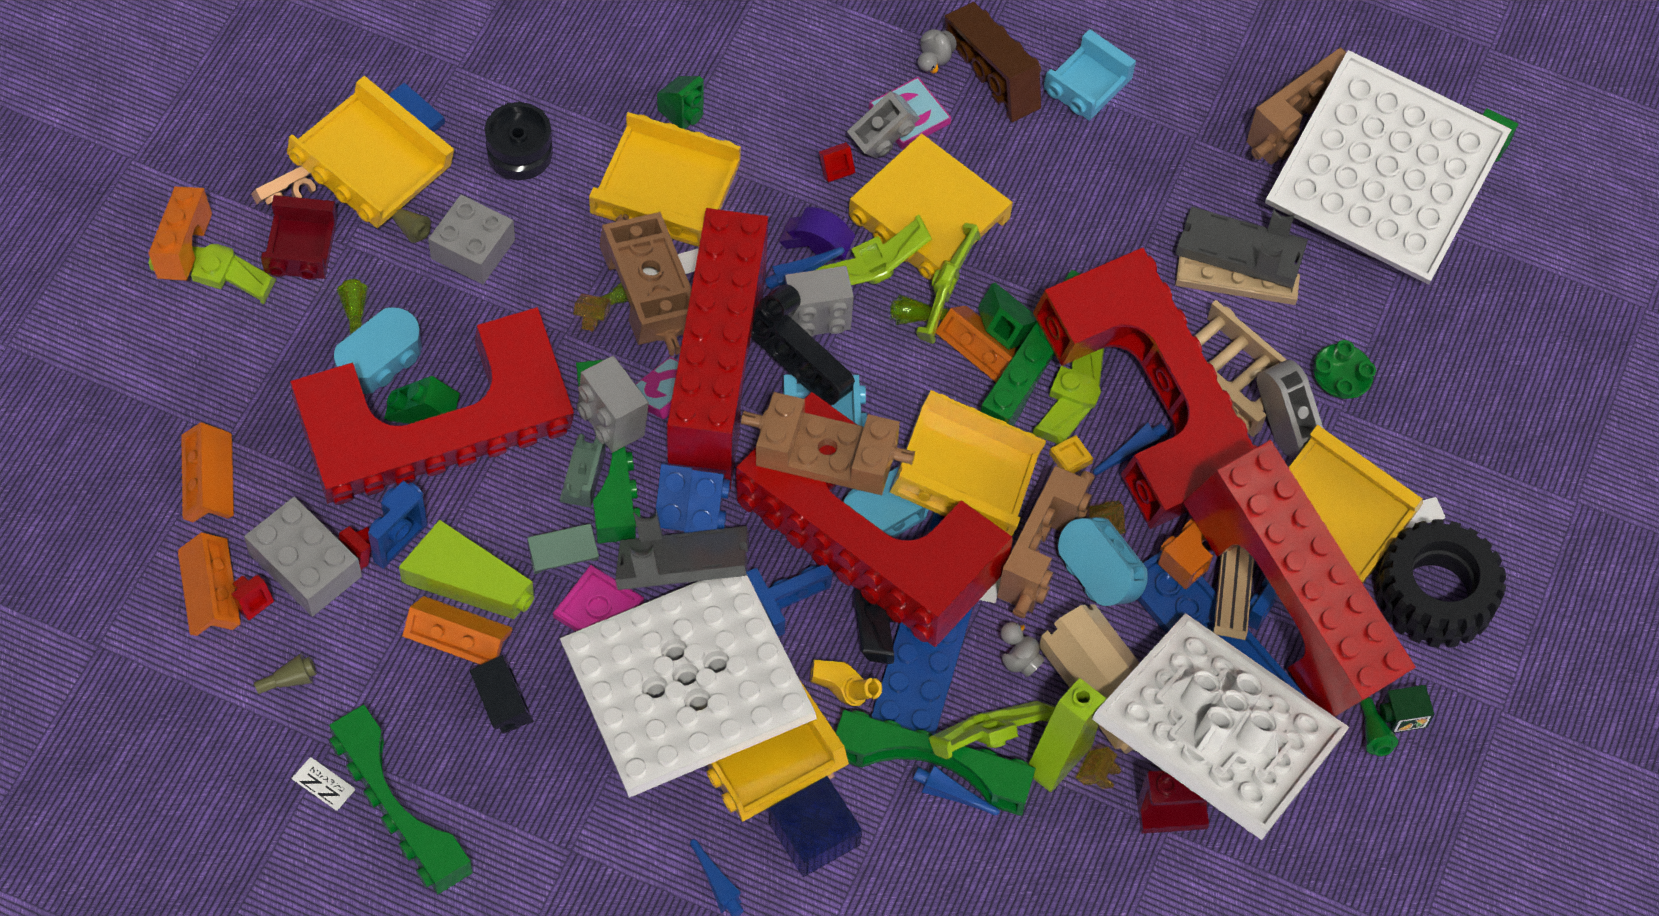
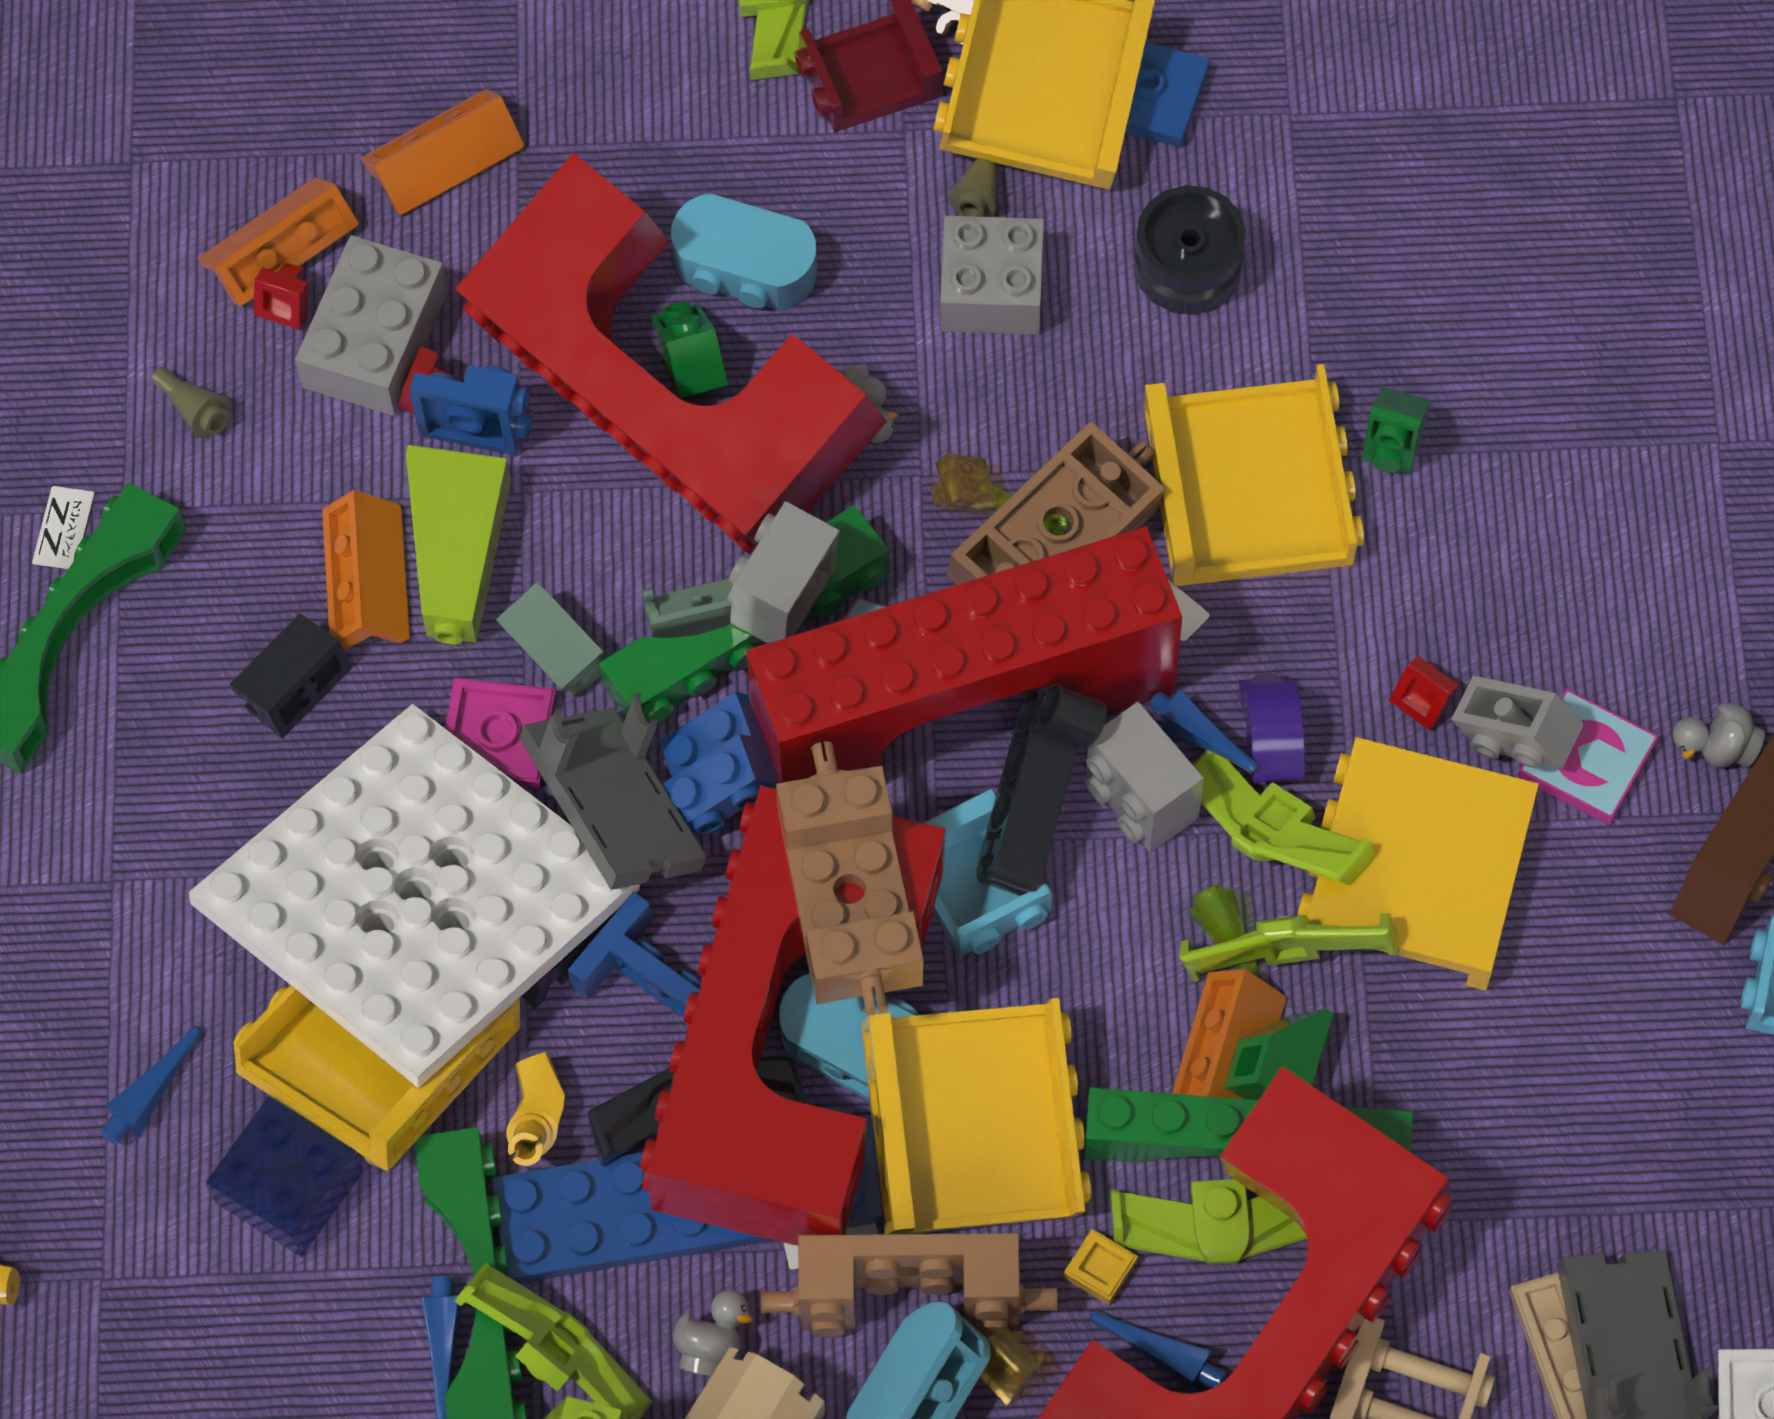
camera: 70 degrees right, 5 degrees up
(353, 297) = (810, 180): clear neon green cone -> none

